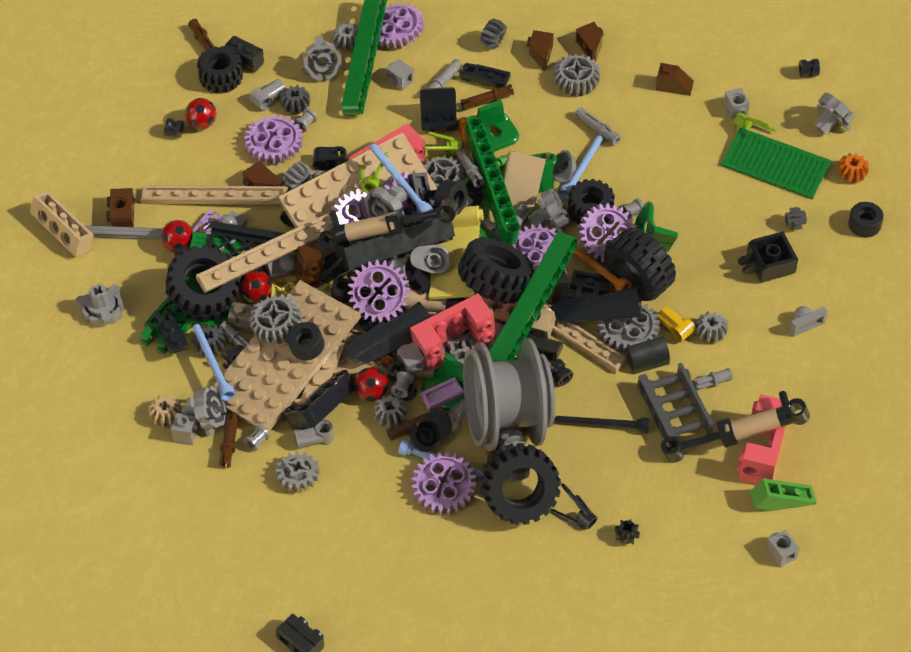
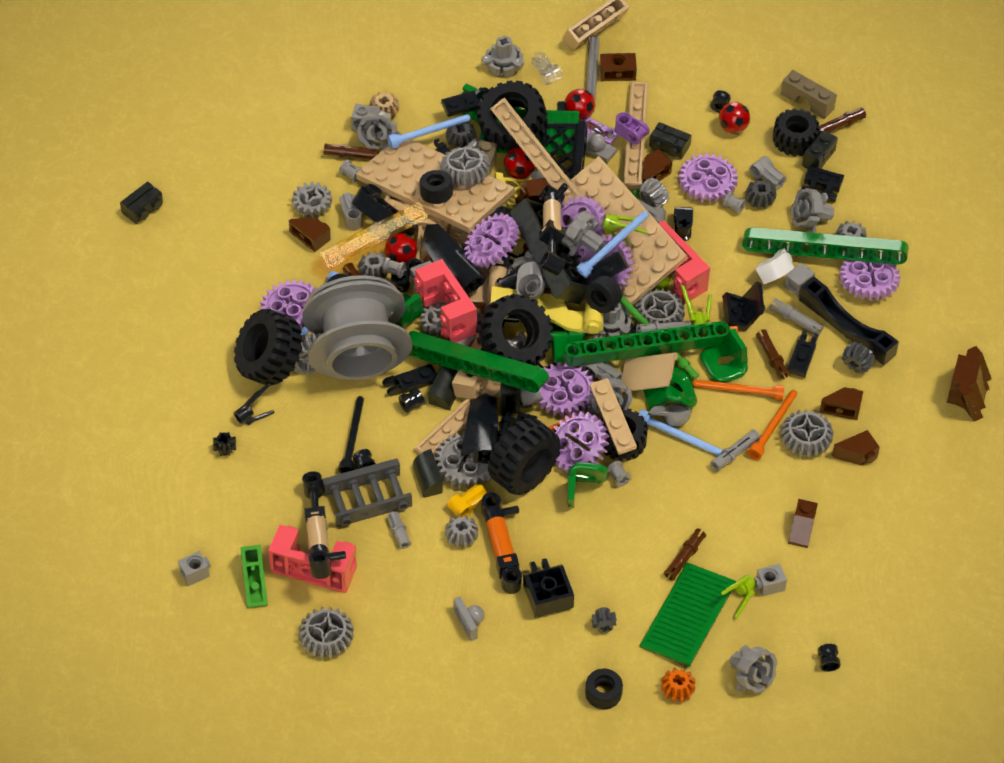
camera: 90 degrees right, 0 degrees up
(123, 266) = (548, 71): none -> clear piece
(177, 50) = (820, 99): none -> dark tan arch
(215, 192) = (629, 128): none -> medium lavender piece
(224, 167) = (670, 140): none -> pearl dark grey brick
(276, 55) = (823, 179): none -> black plate
(345, 469) = (310, 232): none -> reddish brown slope
(348, 369) = (373, 234): none -> clear yellow arch
(392, 86) = (775, 267): none -> white brick
(429, 57) = (823, 303): none -> black arch
(530, 96) = (775, 392): none -> orange piece
(586, 197) = (613, 416): none -> tan plate
(595, 110) = (756, 449): none -> orange piece
(637, 409) = (363, 458): none -> black wheel
(717, 164) = (689, 547): none -> reddish brown pin
(743, 291) = (506, 559): none -> black piece
(851, 427) = (335, 639): none -> light grey gear

